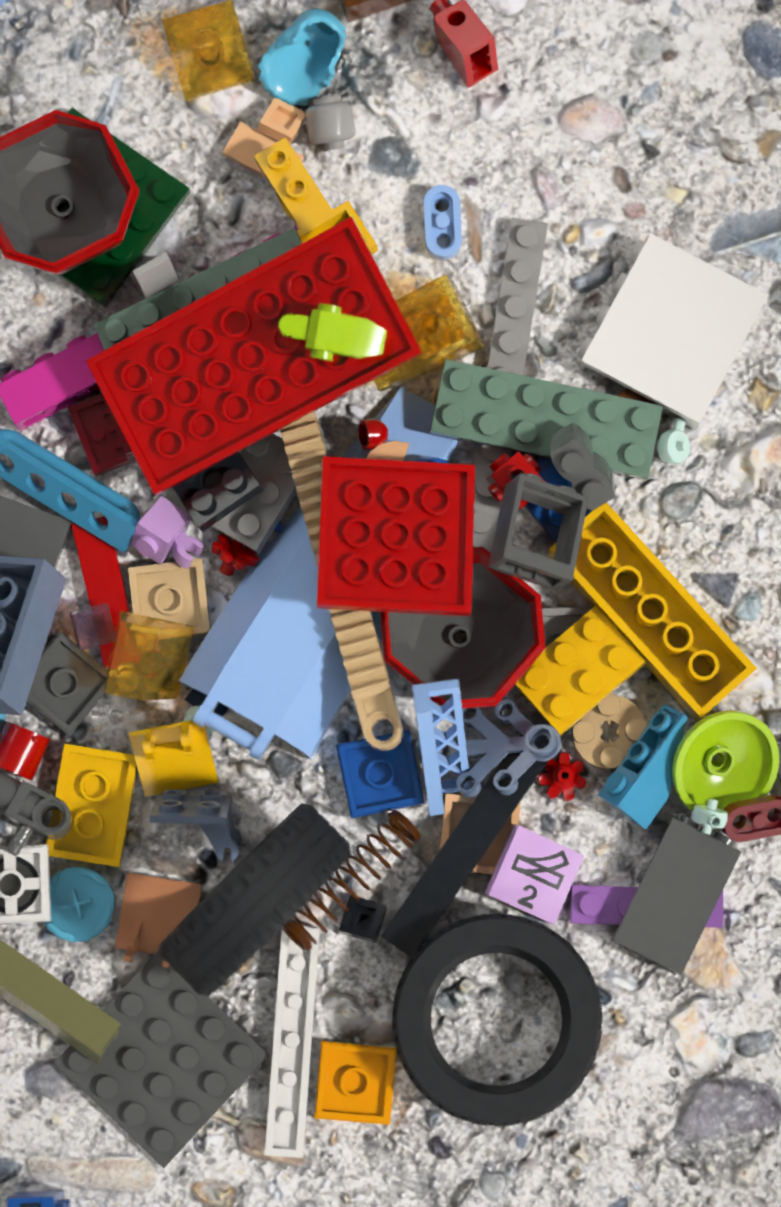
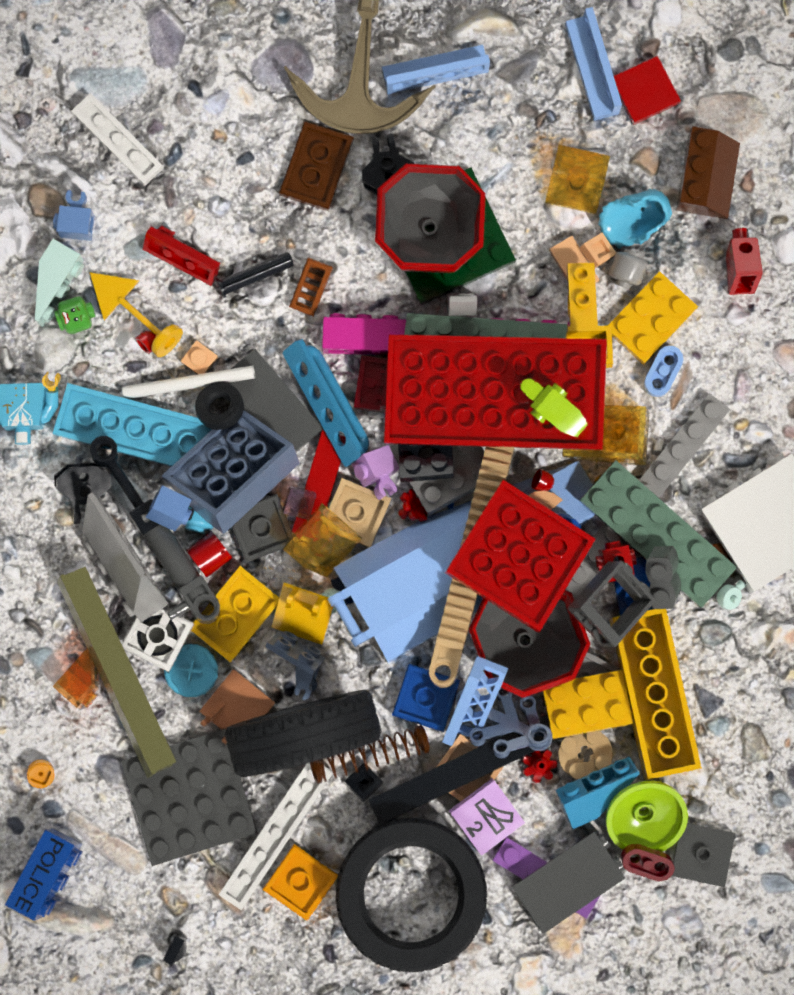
camera: 25 degrees right, 0 degrees up
(392, 166) = (651, 317): none -> yellow plate
(709, 816) = (618, 844): light aqua piece -> none

